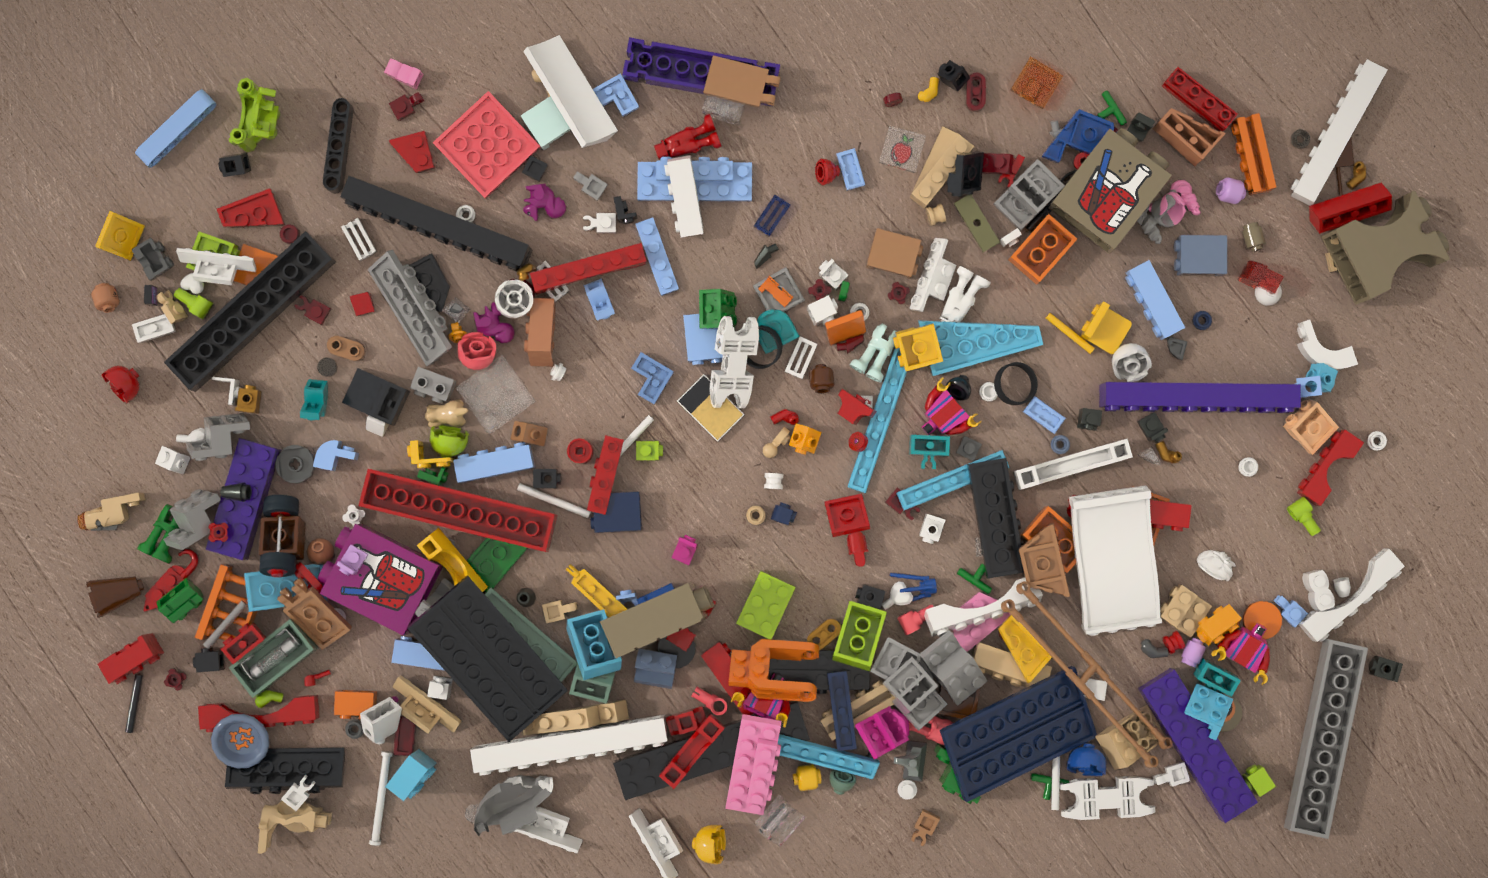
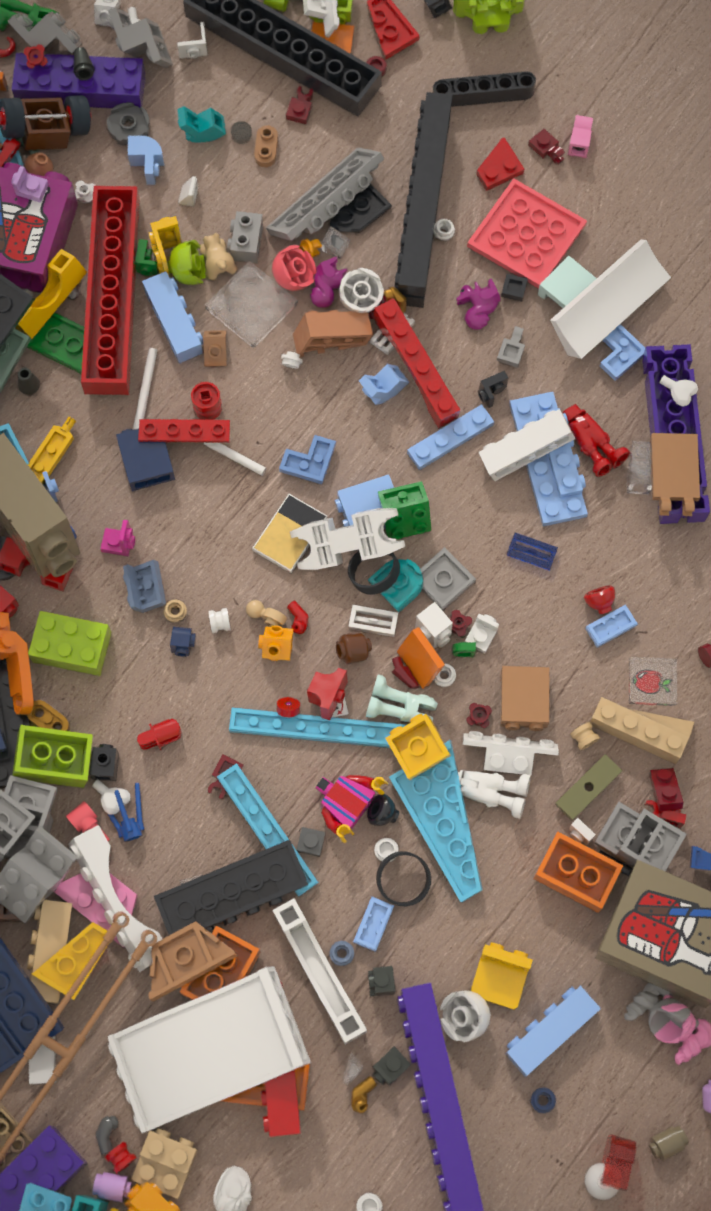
camera: 75 degrees right, 15 degrees down
(253, 404) = (187, 64): pearl gold brick -> none
(351, 225) = (370, 138): white tile -> none
(362, 303) = (319, 150): red slope -> none
(376, 397) = (218, 185): black slope -> none
(539, 478) = (166, 367): black brick -> none
(556, 610) = (19, 418): tan plate -> none
(604, 223) = (472, 371): white plate -> none
(648, 450) = (224, 477): lime bracket -> none
(670, 57) = (680, 390): none -> white rock
(730, 535) = (144, 586): none -> sand blue bracket
(765, 254) = (484, 553): pearl dark grey bar -> none
(772, 287) = (442, 576): orange piece -> none
(847, 515) = (196, 712): red tile -> none
(929, 446) = (301, 790): teal brick -> none
(930, 520) = (208, 823): white brick -> none
(967, 175) = (643, 755): black plate -> none
(975, 580) = (151, 886): green piece -> none
(1070, 333) = (483, 934): yellow bar -> none
(1176, 347) = (500, 1075): dark grey tile -> none
(1201, 254) = (626, 1077): sand blue panel -> none

